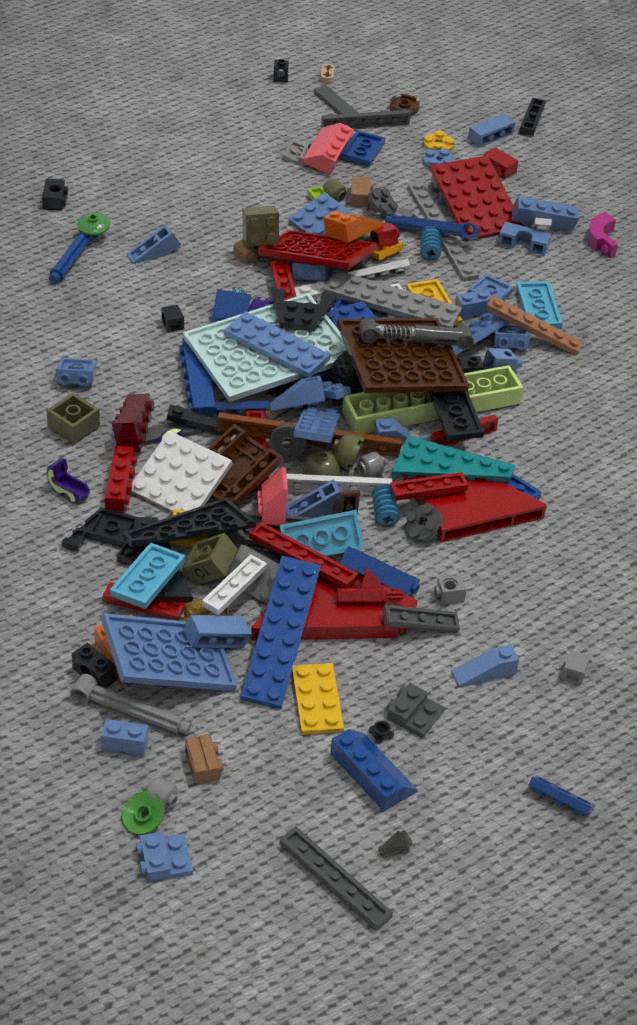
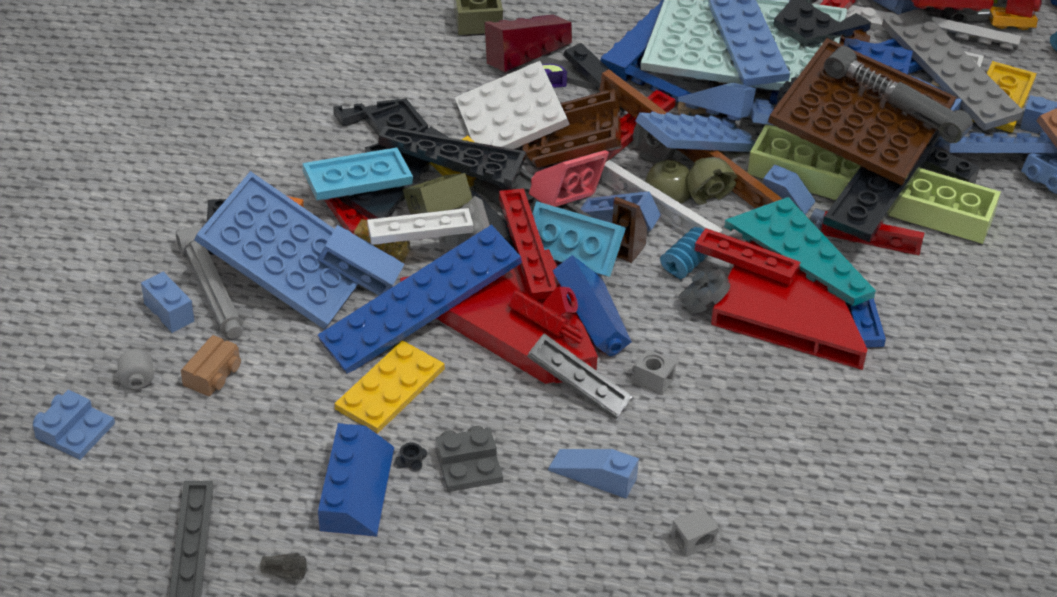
camera: 45 degrees right, 0 degrees up
(65, 483) = (401, 58): dark purple animal -> none
(120, 478) = (446, 86): red brick -> none
(135, 810) = (99, 375): bright green dish -> none
(371, 465) = (723, 206): light grey head -> none
(501, 357) = (1008, 182): medium blue torso -> none

